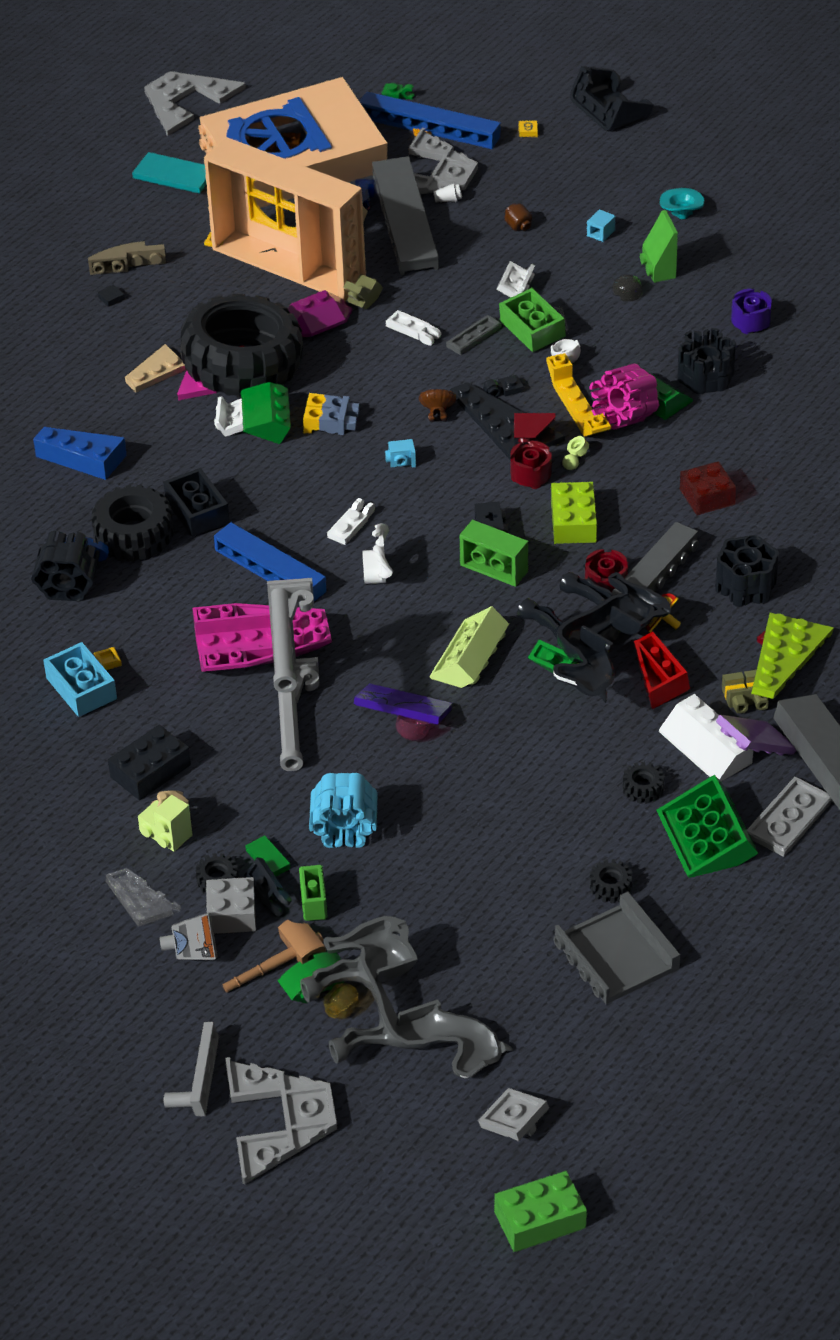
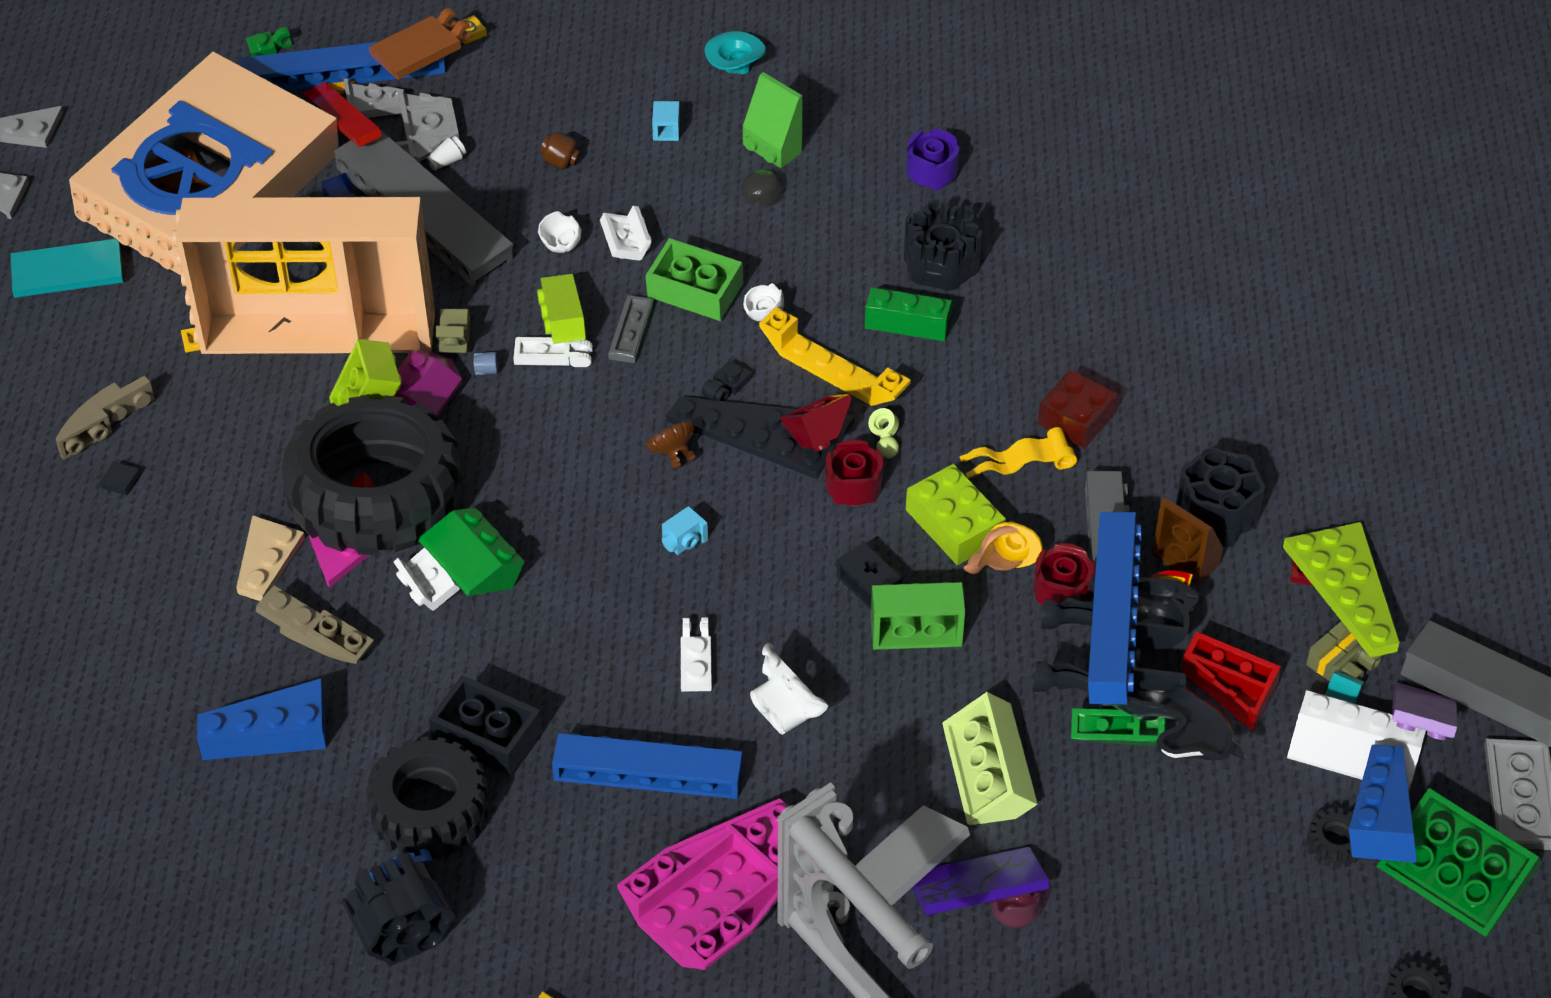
camera: 35 degrees left, 5 degrees up
(147, 413) = (315, 630): none -> dark tan slope
(287, 287) = (368, 372): none -> lime slope
(330, 414) = (549, 518): sand blue hips -> none
(368, 318) = (485, 363): none -> sand blue hose
(371, 673) = (911, 852): none -> light grey tile
(398, 145) = (349, 119): none -> red tile
(436, 304) = (561, 309): none -> lime brick
(475, 262) = (559, 232): none -> white hair
(481, 122) = (420, 44): none -> dark orange tile
(580, 540) = (1006, 548): none -> piece
(600, 588) = (1113, 610): none -> blue brick
(626, 395) = (888, 348): dark pink piece -> none
(671, 505) = (1050, 449): none -> yellow flag
(676, 770) = (1382, 813): none -> blue wedge
(699, 586) = (1186, 542): none -> reddish brown slope
(726, 706) = (1344, 687): none -> teal tile

